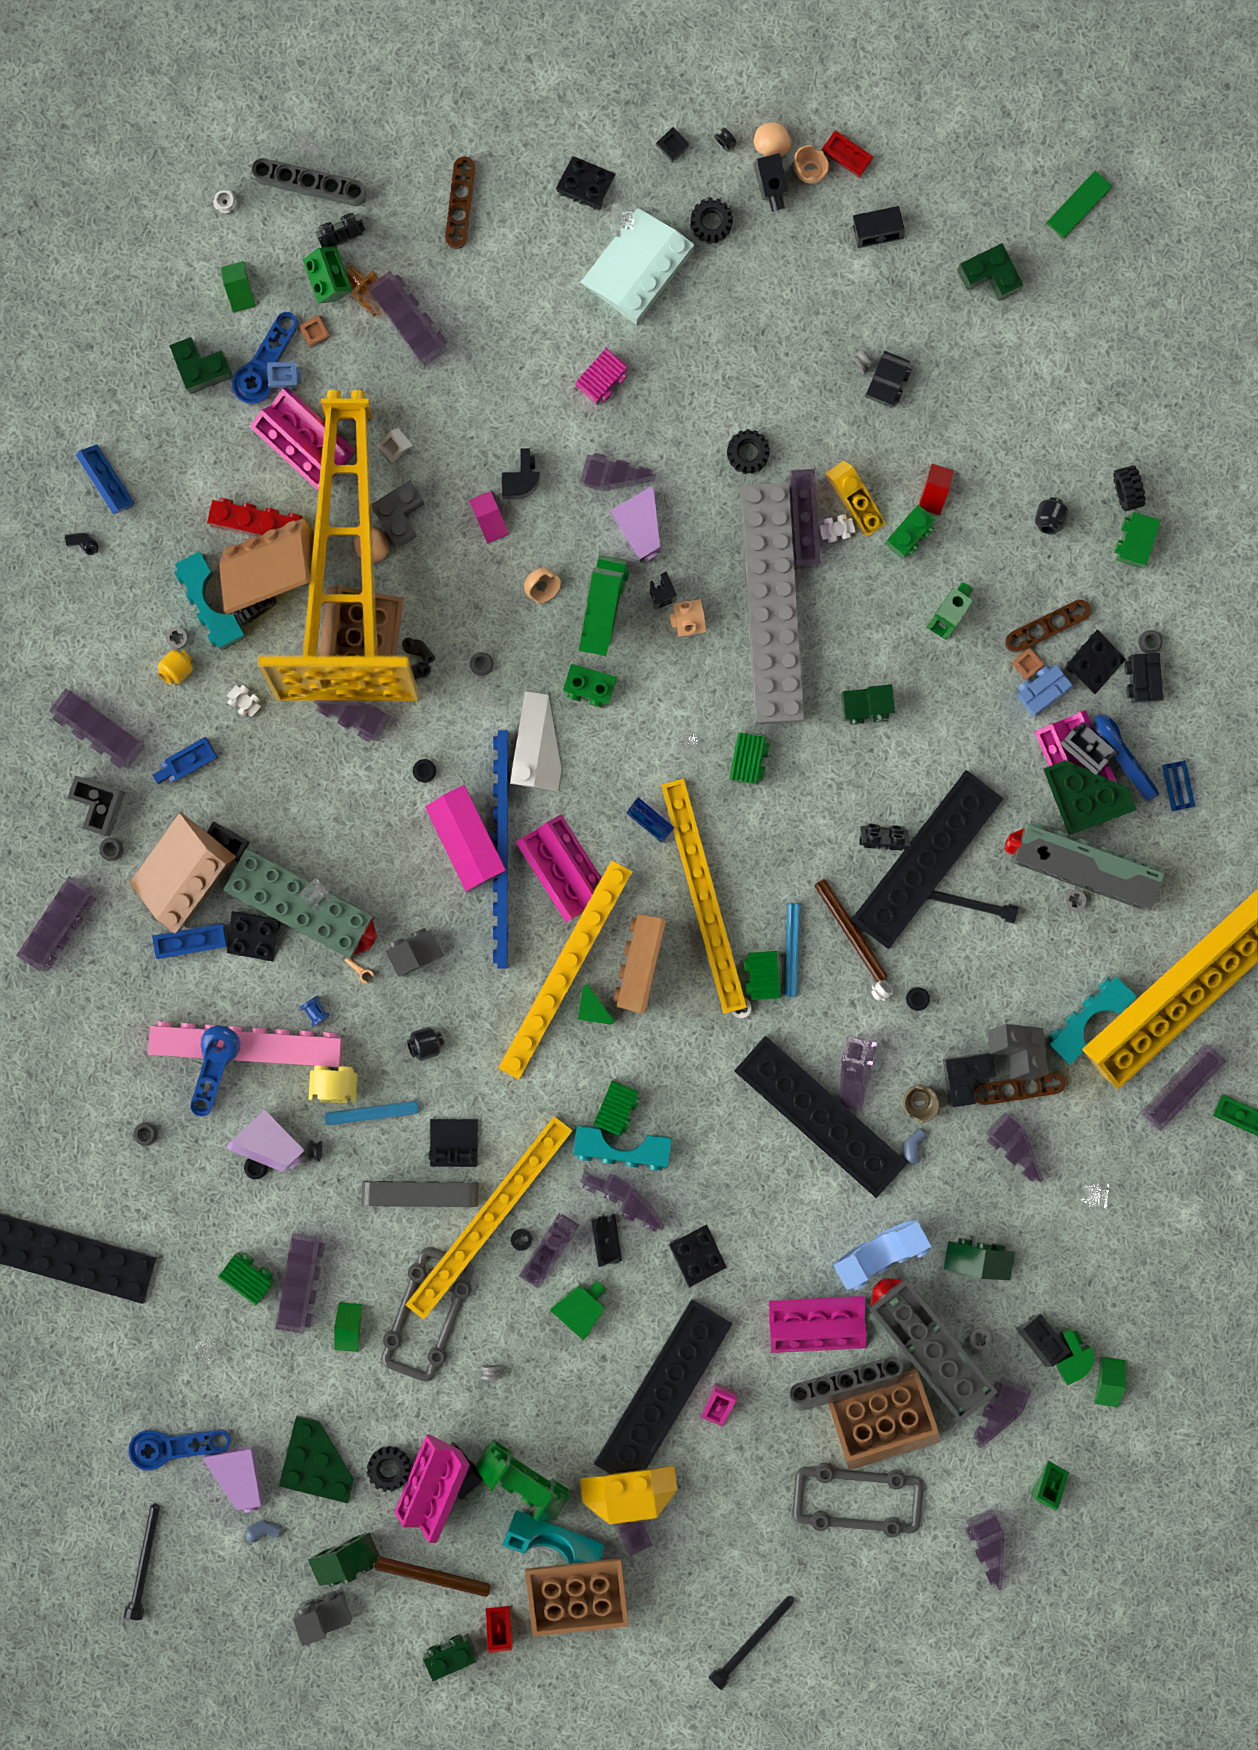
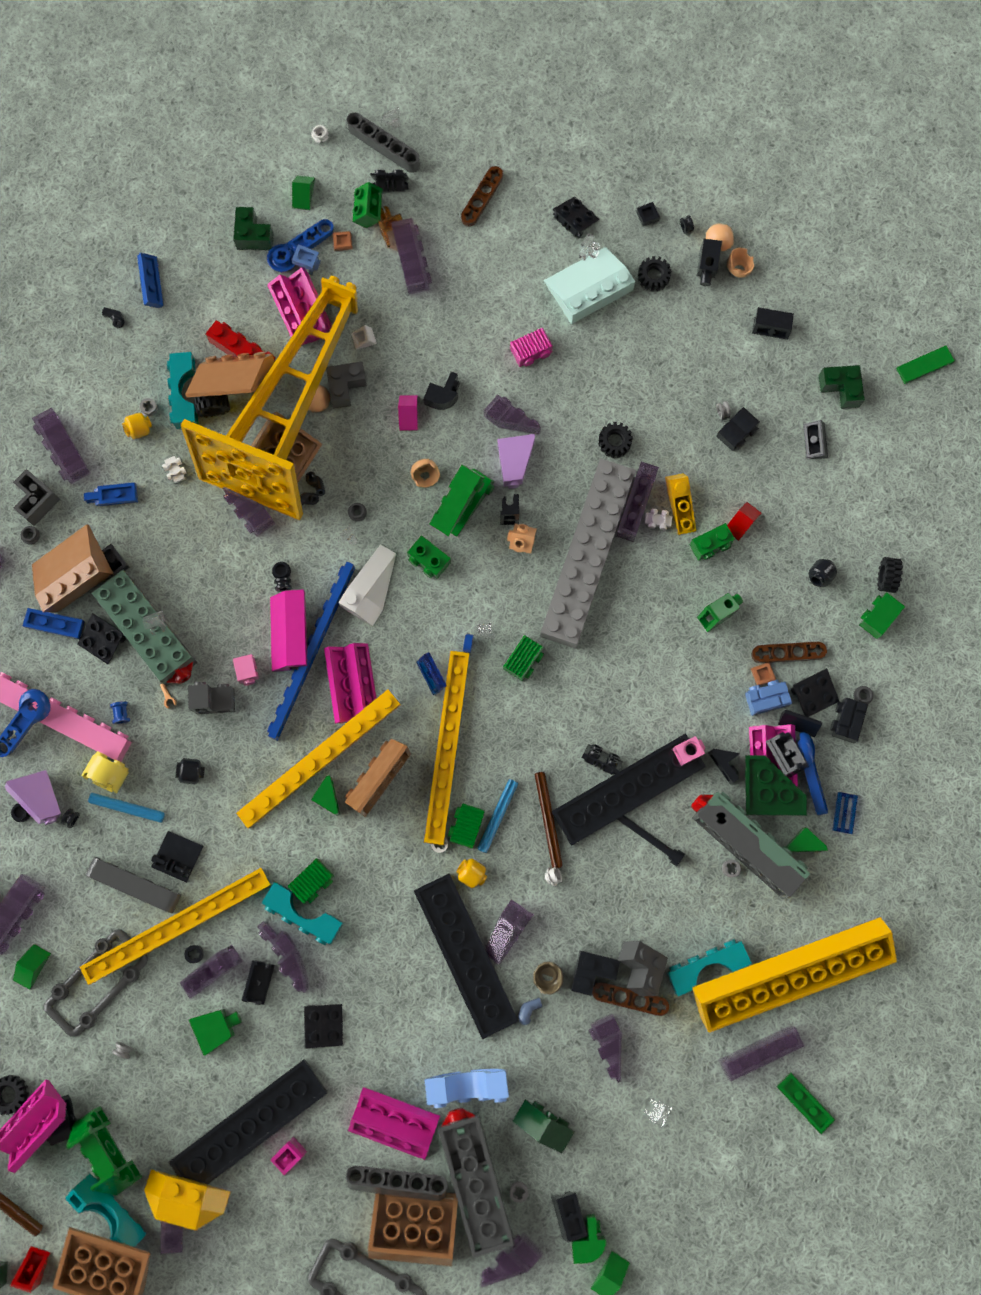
camera: 20 degrees right, 10 degrees down
(433, 786) = (282, 584): none -> black bush
(436, 903) = (245, 669): none -> bright pink brick
(677, 767) = (468, 643): none -> blue tile
(790, 1025) = (471, 873): none -> yellow head
(847, 154) = (770, 267): red plate -> none
(868, 703) = (630, 654): dark green brick -> none
(917, 998) = (578, 894): black plate -> none
(968, 792) = (681, 754): none -> bright pink brick
(983, 354) = (815, 440): none -> black slope
(1019, 781) = (721, 759): none -> black slope
(1091, 703) = (801, 722): none -> black slope
(1146, 837) = (806, 842): none -> green slope

